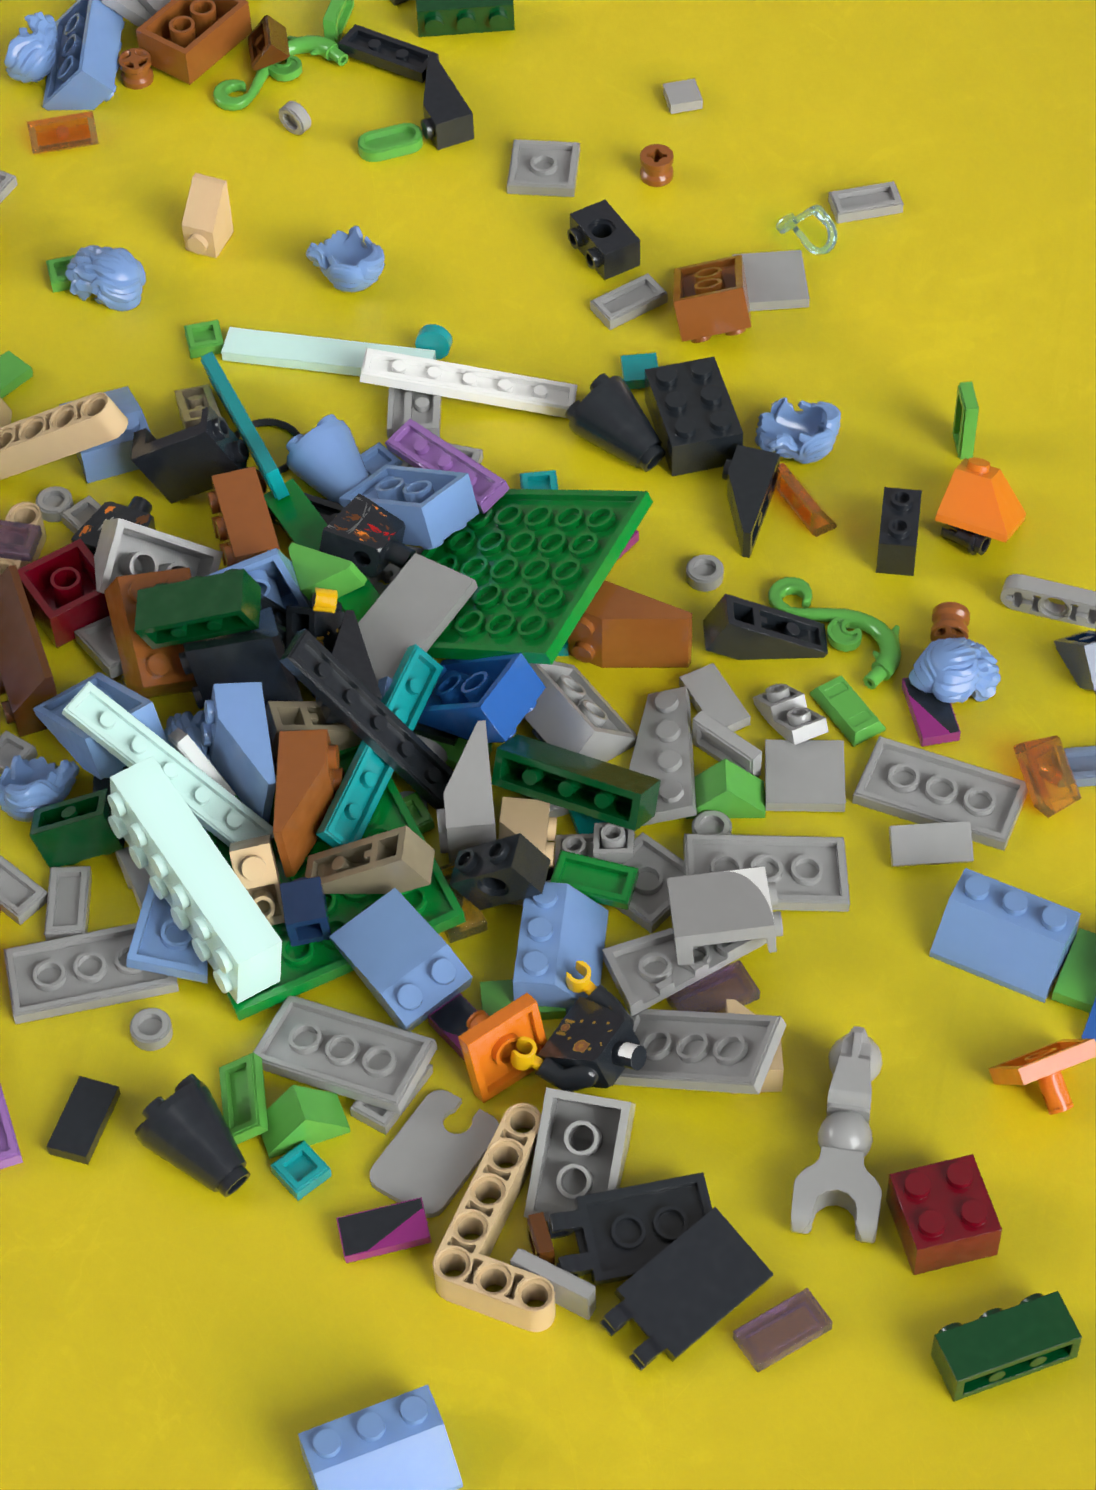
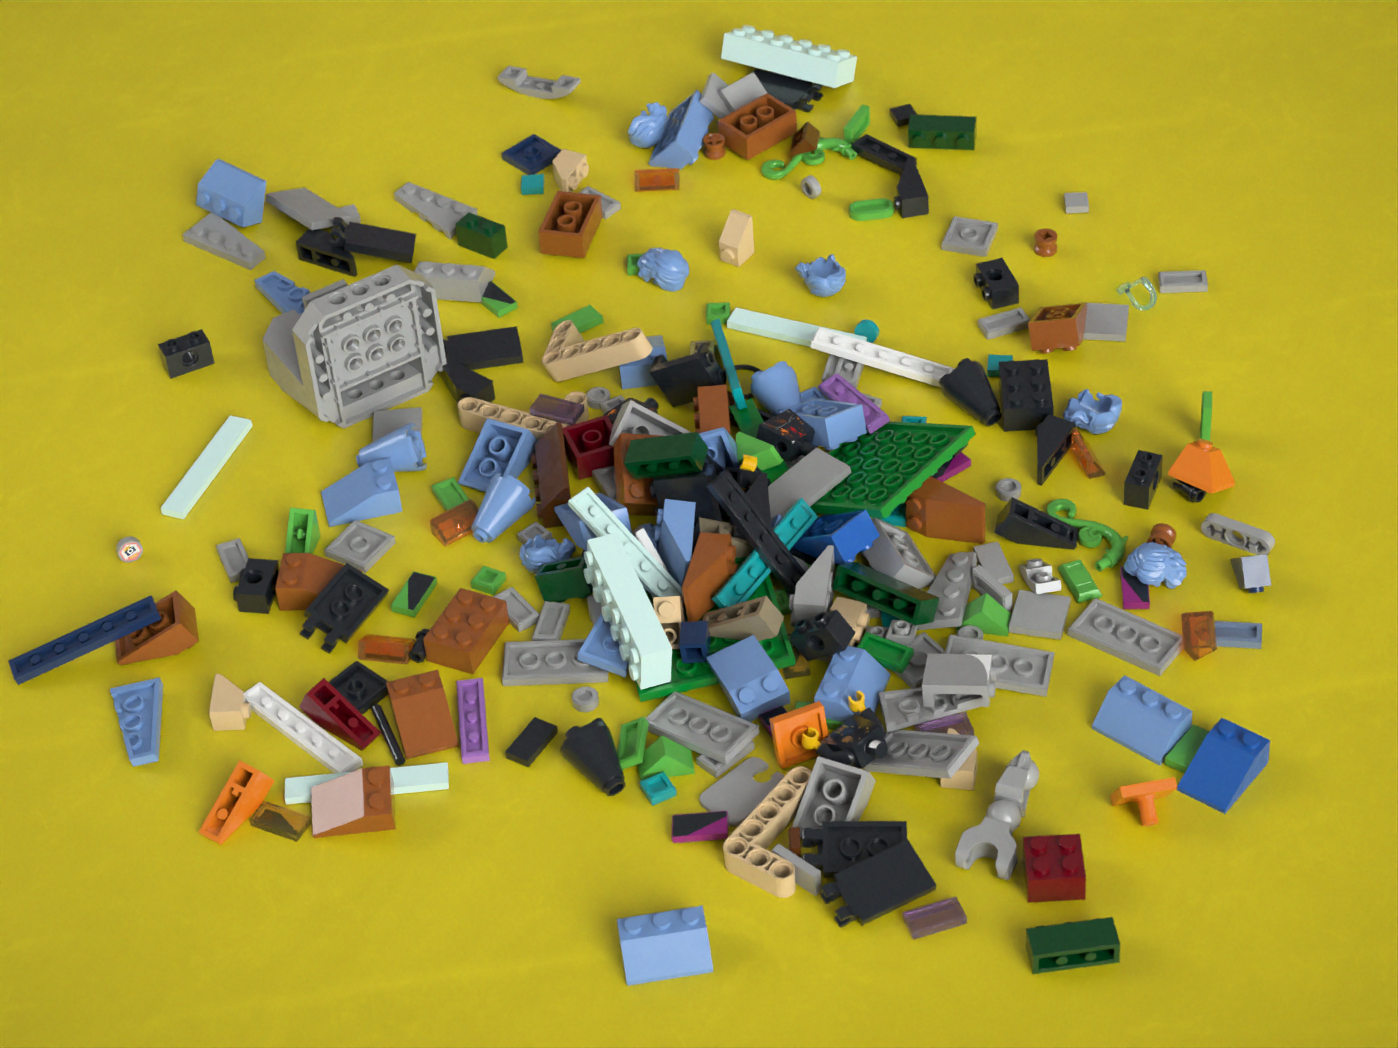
camera: 15 degrees right, 10 degrees down
(931, 843) = (1110, 663): light grey tile -> none

